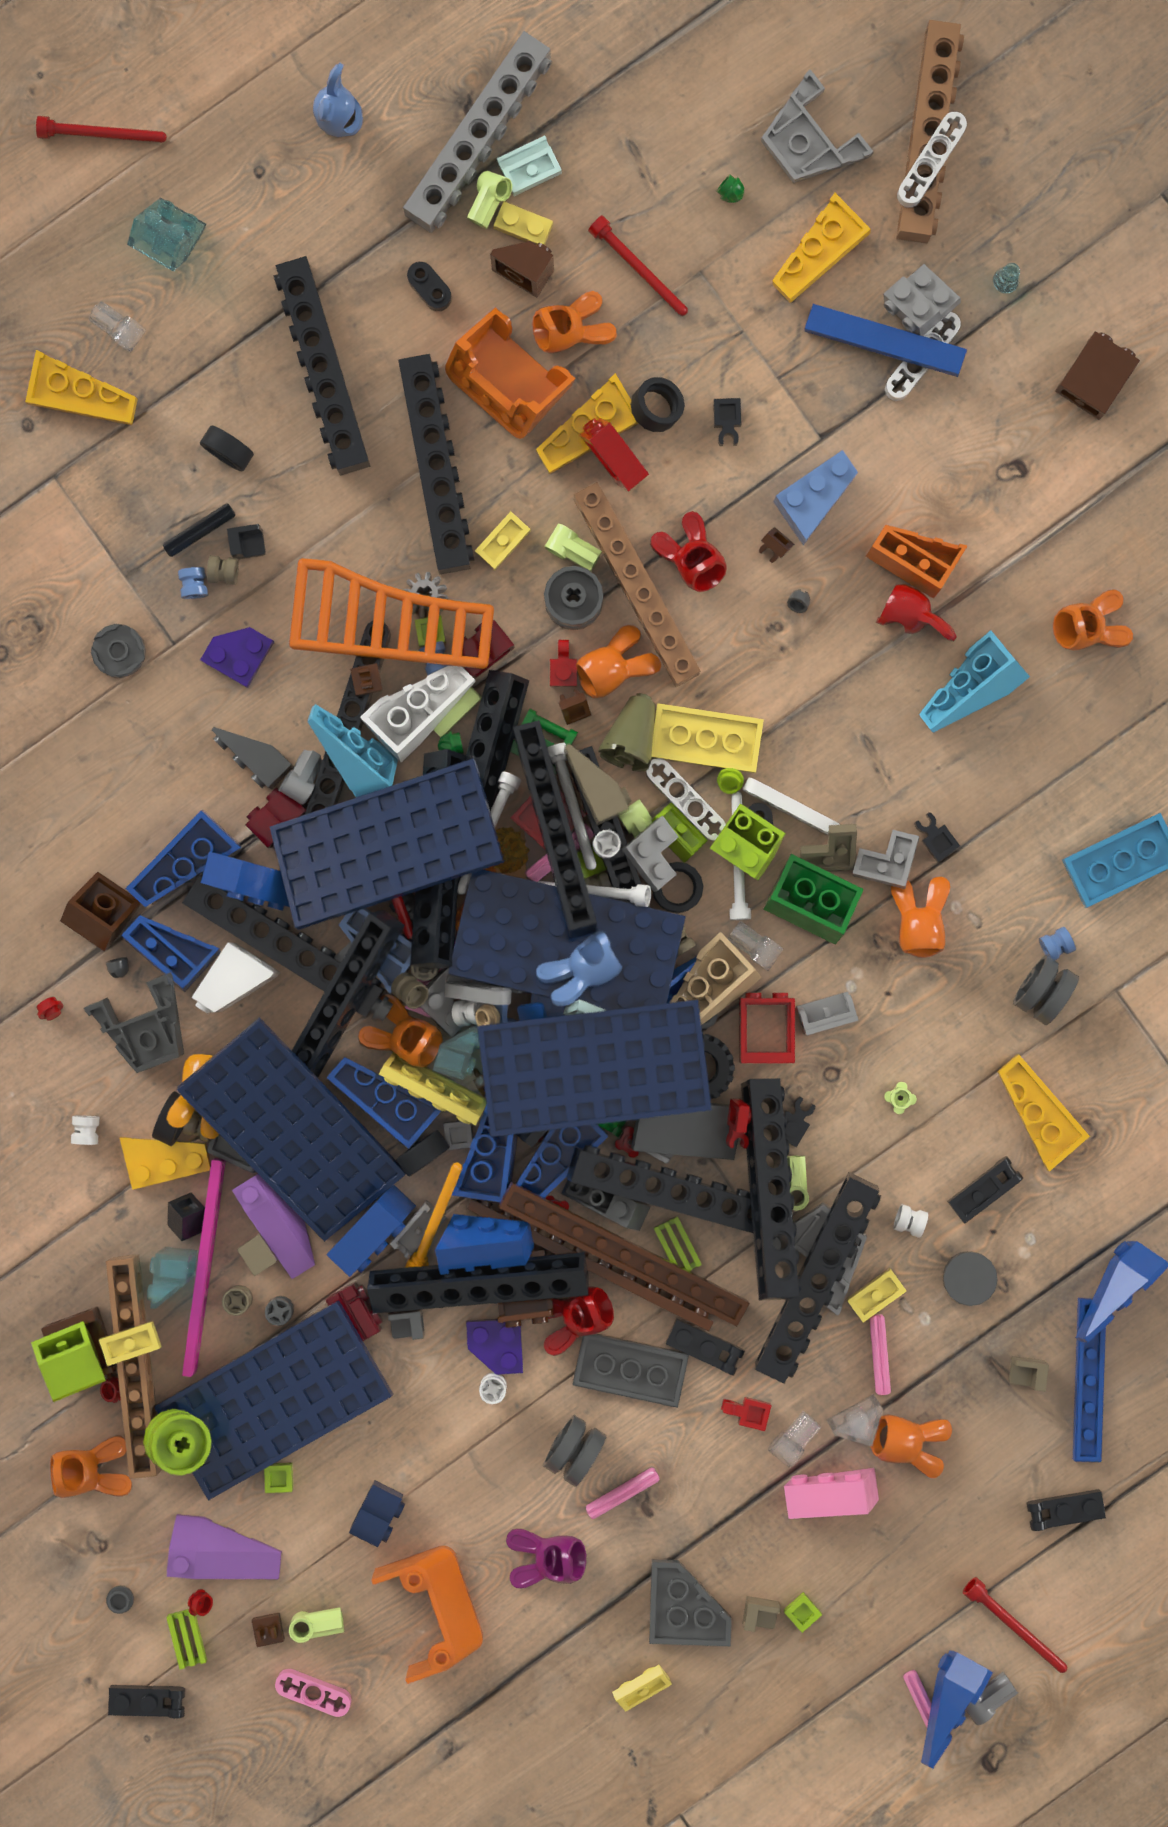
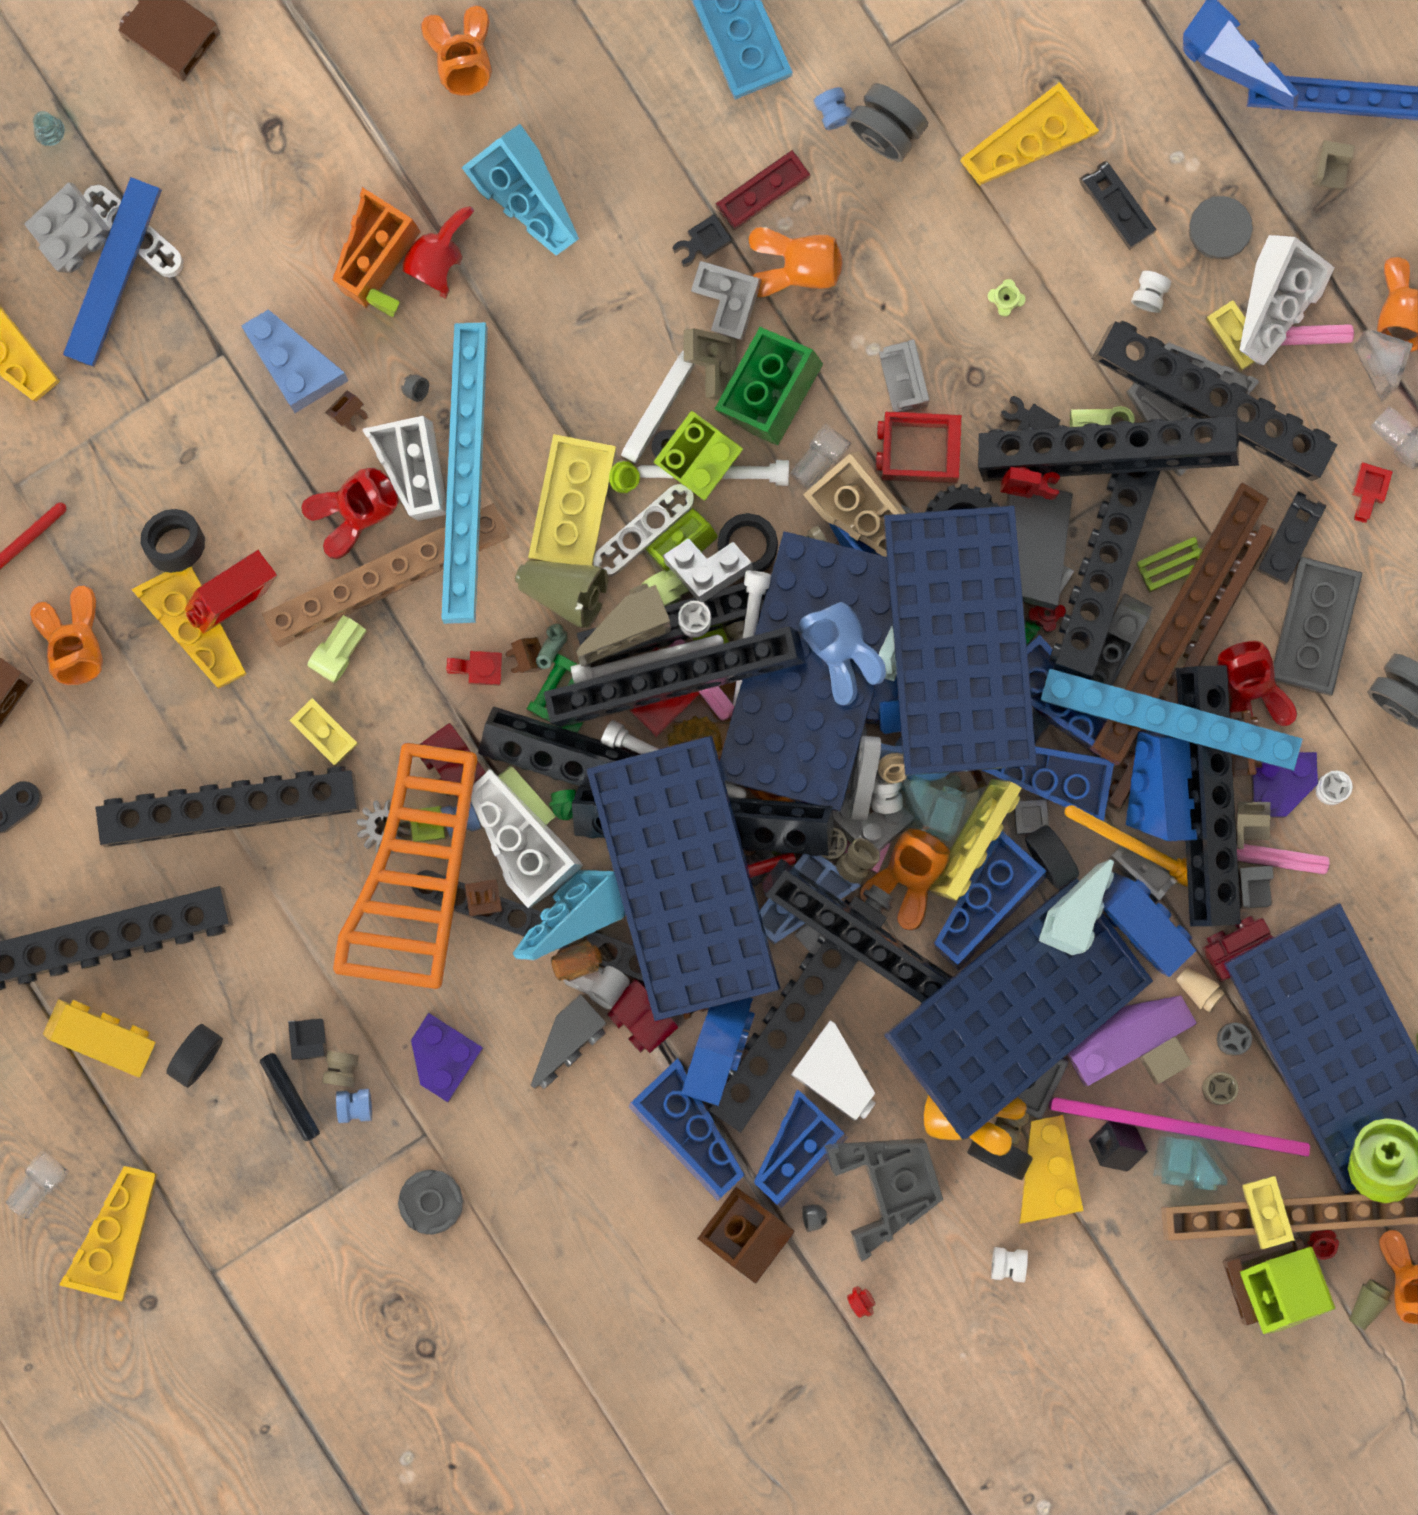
camera: 85 degrees left, 5 degrees down
(66, 1430) = (1370, 1303): none -> olive cone
(239, 369) = (99, 1037): none -> yellow wedge
(315, 759) = (576, 961): none -> clear orange brick
(319, 1281) = (1201, 989): none -> tan cone
(371, 1173) = (1074, 915): none -> light aqua slope
(432, 1346) = (1283, 859): none -> bright pink axle
(461, 1321) = (1253, 822): none -> dark tan panel
(504, 376) = (128, 719): orange windscreen -> none
(537, 1250) = (1171, 719): none -> dark azure plate
(578, 582) = (393, 631): dark grey wheel -> none
(584, 727) = (556, 639): none -> sand green arm
(609, 669) = (491, 610): orange piece -> none
(723, 645) = (464, 473): none -> medium azure plate
(727, 416) = (190, 460): black plate -> none
(730, 602) = (412, 463): none -> white wedge
(870, 569) = (383, 302): none -> lime tile
(920, 1333) = (1283, 286): none -> white wedge
(984, 887) = (763, 190): none -> dark red tile

